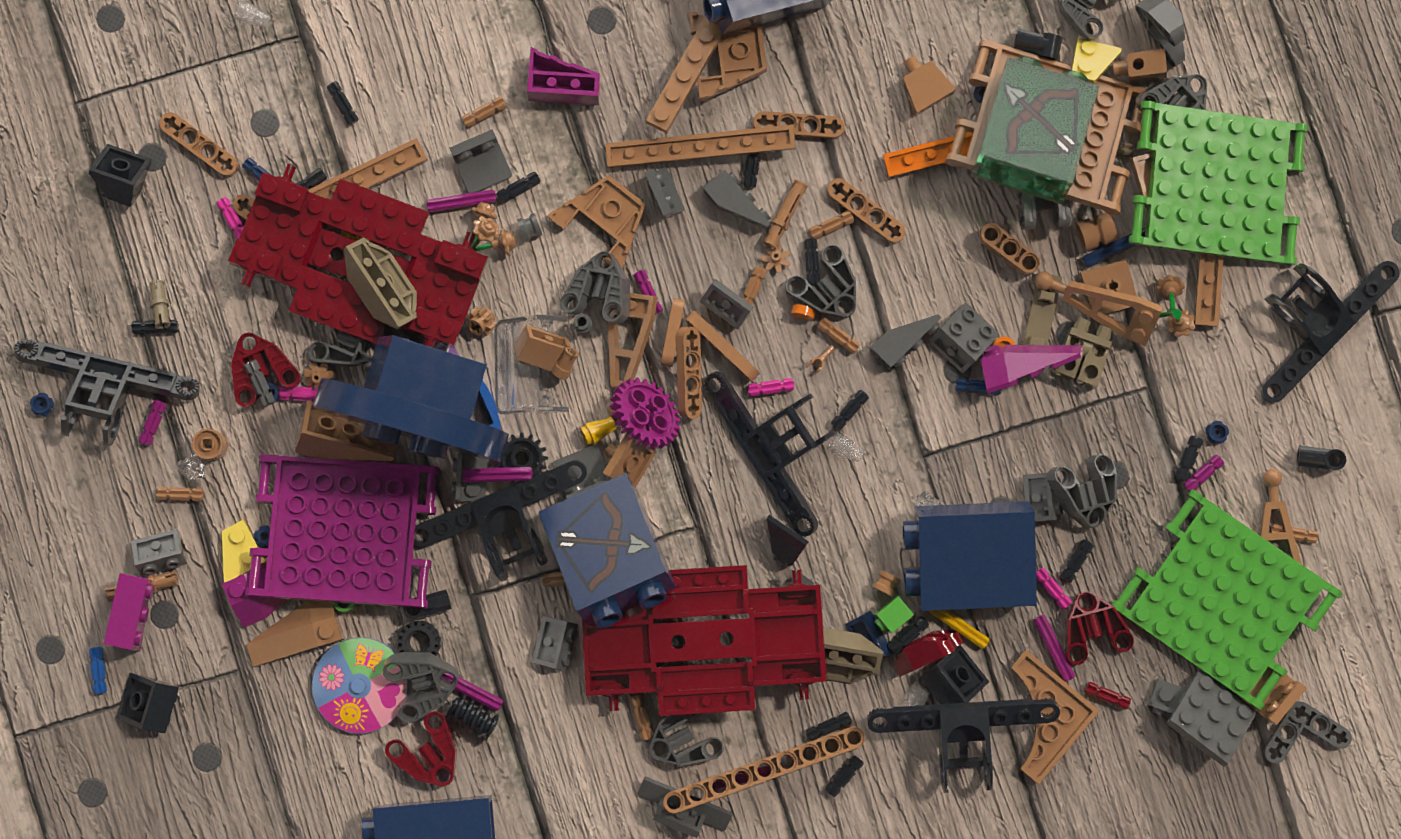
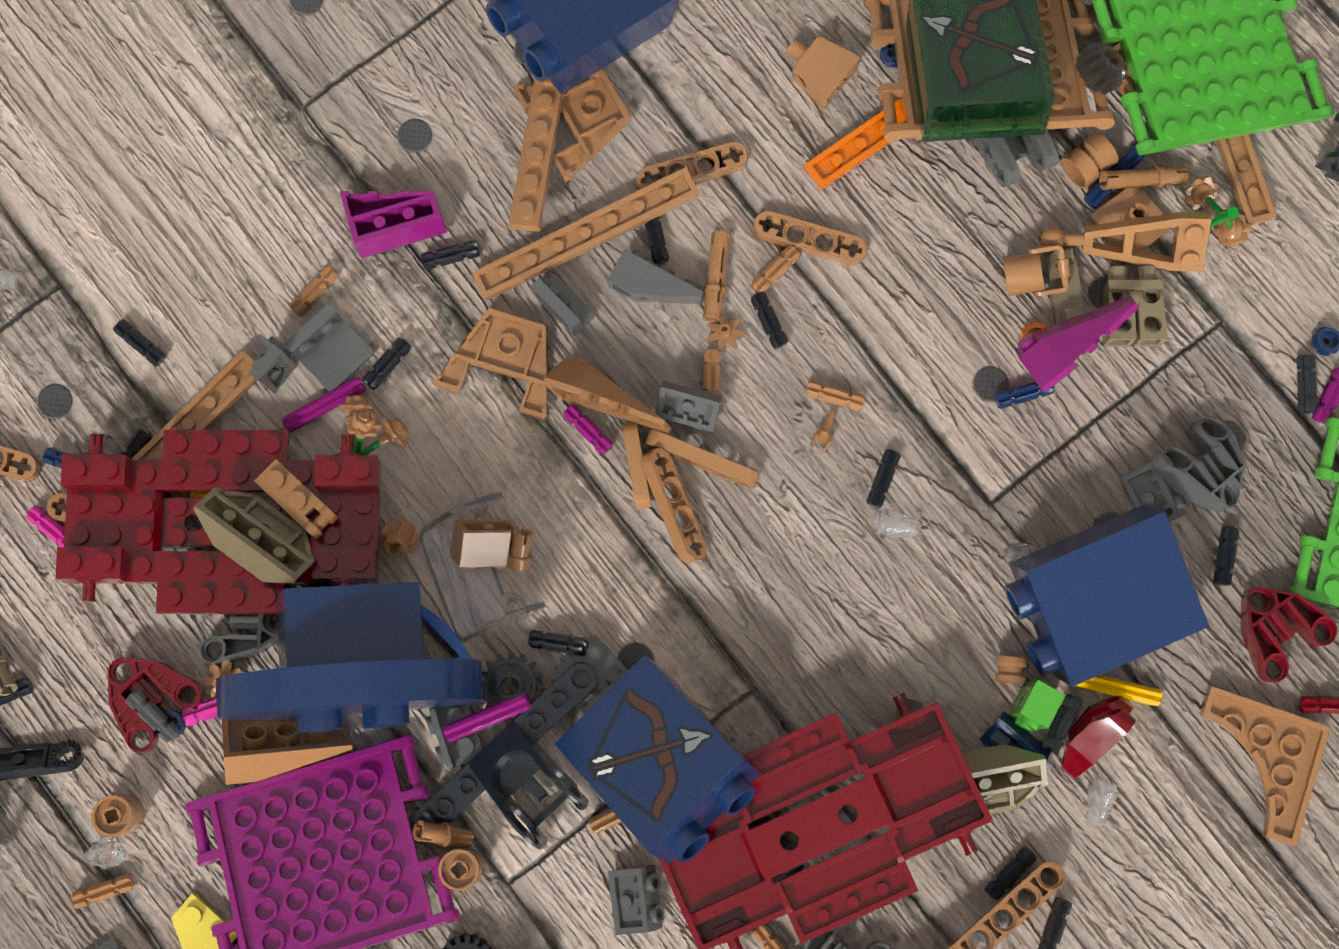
camera: 15 degrees left, 5 degrees down
(152, 422) = (38, 815): magenta axle -> none
(258, 536) = (219, 905): dark blue plate -> none
(417, 265) = (294, 498): none -> medium nougat plate
(435, 545) = (442, 834): none -> medium nougat axle
(437, 160) = (274, 365): none -> dark grey bracket
(437, 603) = (470, 906): black piece -> none
(440, 574) = (462, 868): none -> medium nougat wheel
(529, 227) = (417, 404): dark grey wheel -> none
(567, 440) = (558, 642): none -> black axle
(582, 318) = (520, 488): dark grey pin -> none
(595, 123) = (450, 254): none -> black axle
(595, 431) = (588, 618): yellow cone -> none
(604, 284) = (528, 438): dark grey connector -> none
(628, 459) = (642, 634): medium nougat tile -> none
(640, 307) = (573, 452): medium nougat plate -> none
(645, 413) = (640, 574): magenta gear -> none
(659, 262) = (586, 386): none -> medium nougat wedge
(768, 449) = (805, 561): black piece -> none
(771, 387) = (778, 486): dark pink axle -> none
(784, 542) = (868, 666): black slope -> none
(803, 312) = (782, 383): orange tile -> none
(842, 273) = (812, 321): dark grey connector -> none
(898, 341) = (907, 376): dark grey slope -> none
(954, 678) = (1142, 760): black slope -> none
(964, 337) = (984, 343): dark grey bracket -> none
(964, 724) = (1178, 807): black piece -> none
(1014, 299) = (1025, 273): none -> medium nougat piece
(1021, 250) = (1009, 214): medium nougat beam -> none
(1052, 588) = (1216, 602): dark pink axle -> none
(1054, 648) = (1243, 671): magenta axle -> none
(1126, 168) = (1101, 67): none -> clear smoke gear
(1138, 261) = (1155, 177): none -> medium nougat pin

